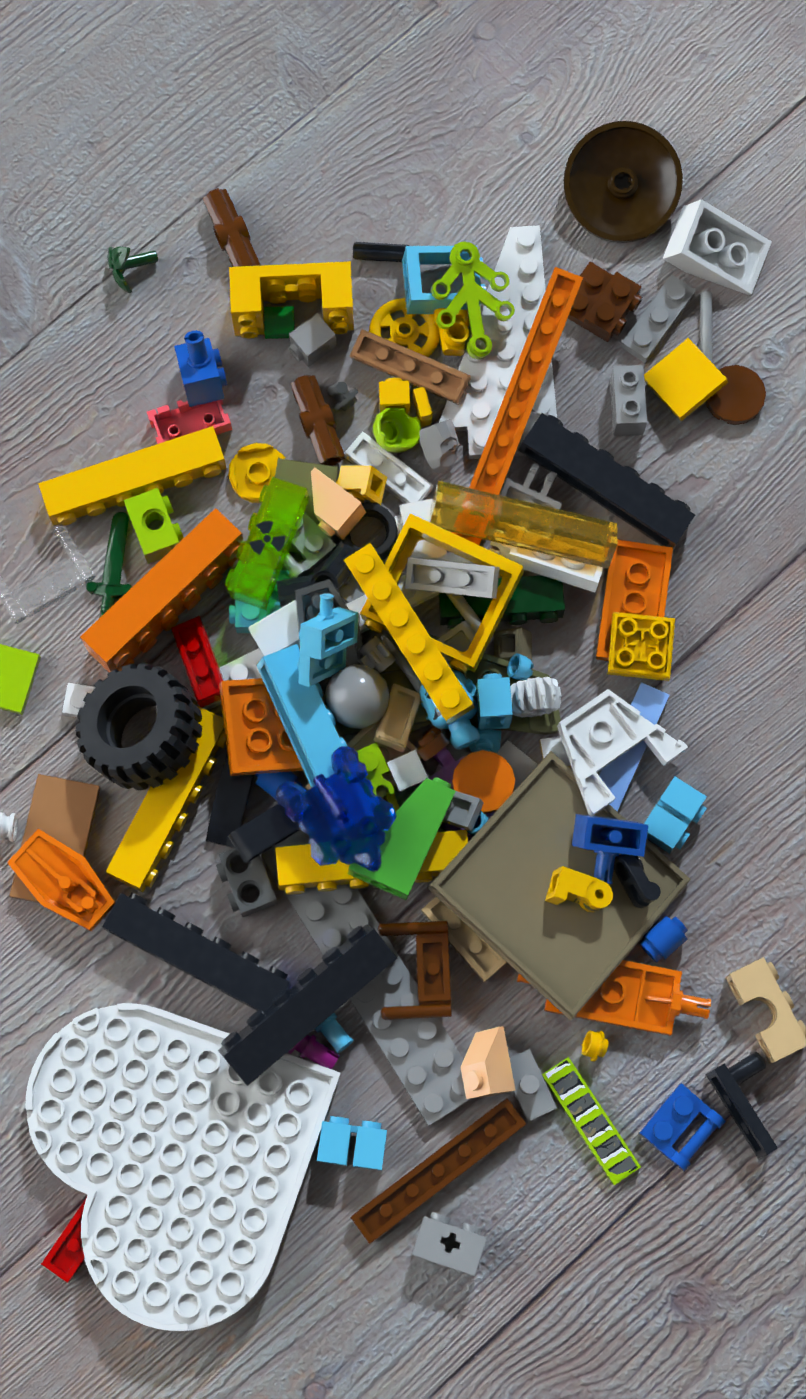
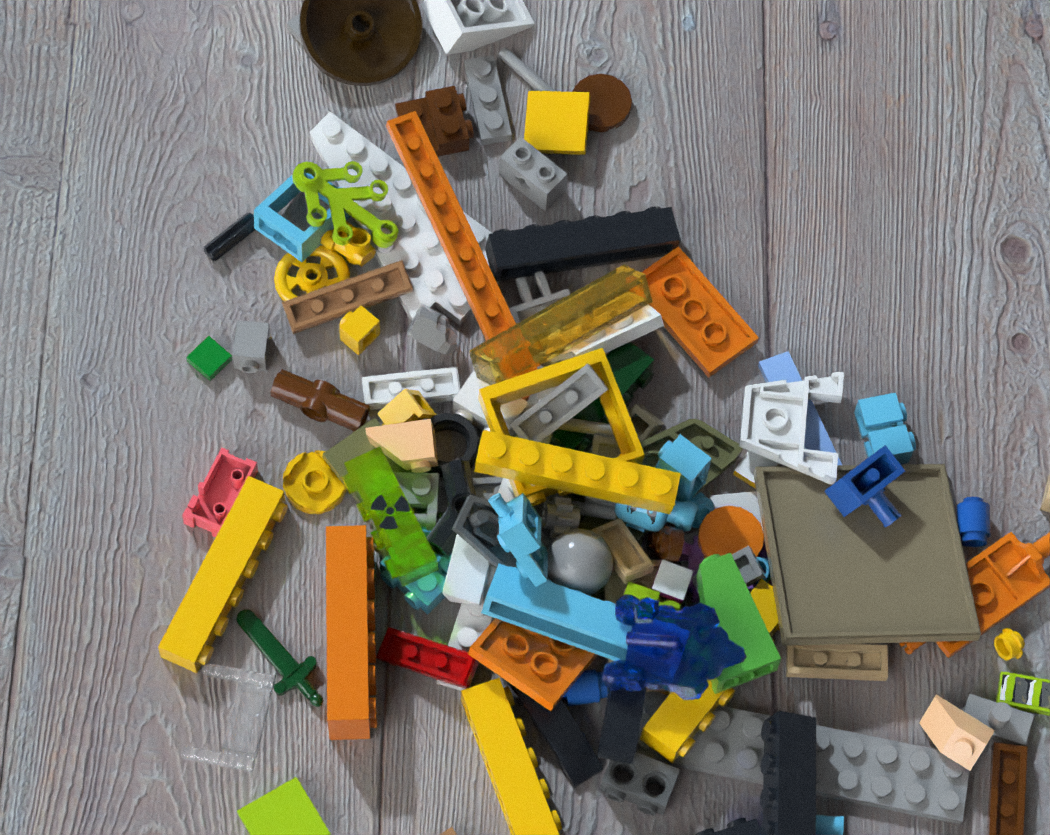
camera: 50 degrees left, 10 degrees down
(74, 698) = (366, 780): white plate -> none
(111, 708) = (402, 735): black tyre -> none
(120, 260) = (37, 421): dark green plant -> none
(145, 509) = (293, 608): lime brick -> none
(199, 369) = (192, 445): blue brick -> none
(230, 229) = (100, 326): reddish brown piece -> none
(285, 282) = (170, 348): yellow plate -> none
(344, 397) = (318, 364): dark grey plate -> none
(396, 430) = (388, 351): lime hair -> none
(422, 406) = (389, 317): yellow tile -> none
(432, 970) = (845, 706): reddish brown plate -> none
(520, 667) = (665, 426): medium azure hinge -> none
(535, 697) = (708, 432): white gear -> none
(579, 888) = (885, 539): yellow leg -> none
(634, 880) = (915, 497): black plate -> none
(641, 646) = (734, 334): yellow tile -> none

